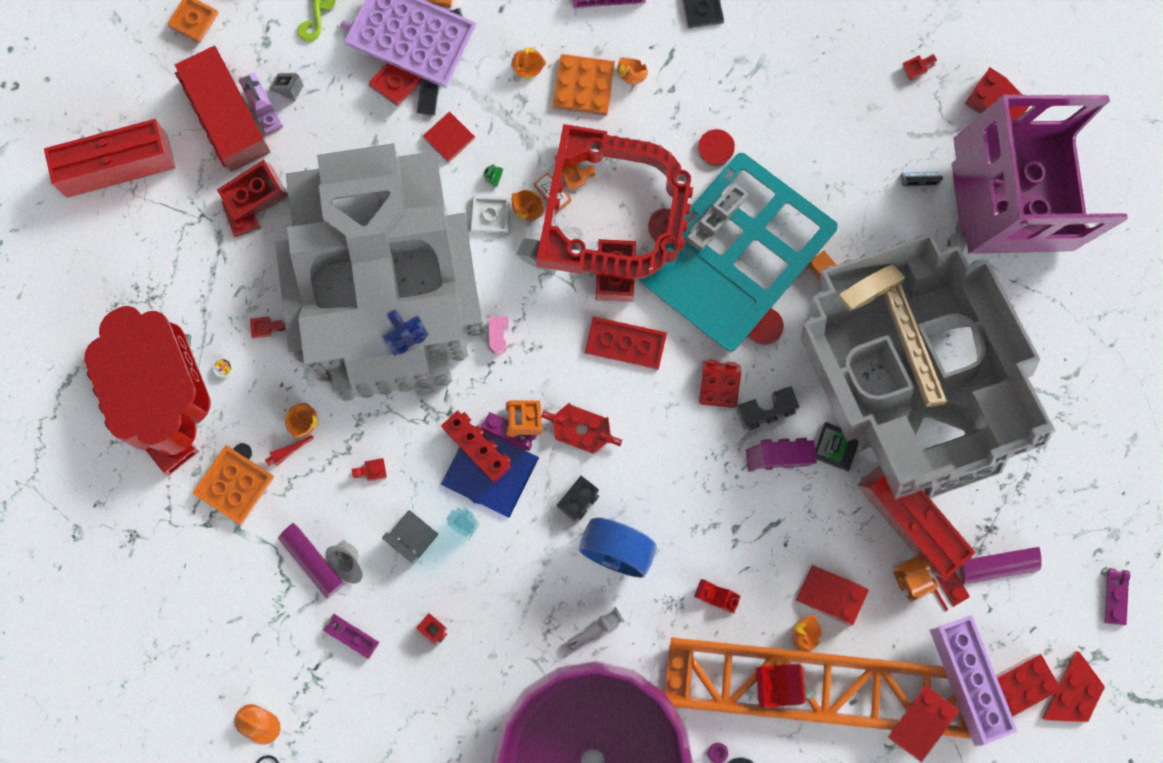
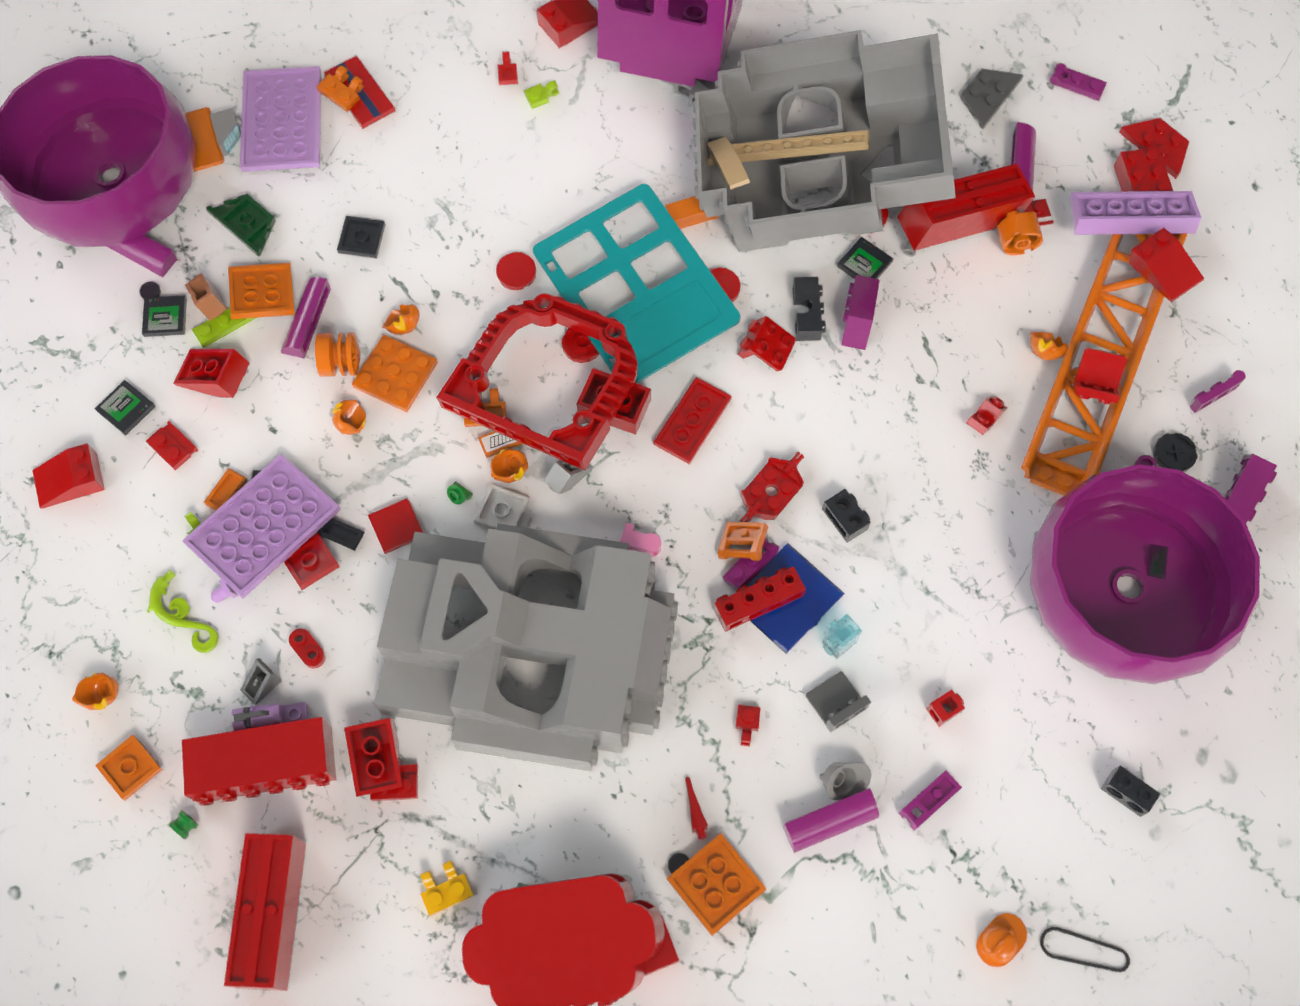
camera: 70 degrees left, 10 degrees down
(161, 75) = (183, 824): none -> green wheel
(168, 285) = (446, 894): none -> yellow plate
(223, 368) = (572, 857): tile -> none
(263, 327) = (540, 794): red plate -> none
(300, 420) = (666, 781): orange hair -> none
(327, 108) = (306, 647): none -> red plate
(404, 333) = (626, 605): clear blue plate -> none
(578, 31) = (333, 354): none -> orange wheel
(604, 624) = (987, 532): light grey pin -> none
(618, 547) = (916, 483): blue wheel -> none
(717, 217) = (594, 286): light grey slope -> none
(832, 595) = (1015, 311): red slope -> none
(904, 102) = (539, 96): none -> lime plate
(921, 178) = (621, 105): black slope -> none
(1069, 513) = (988, 93): none -> dark grey wing

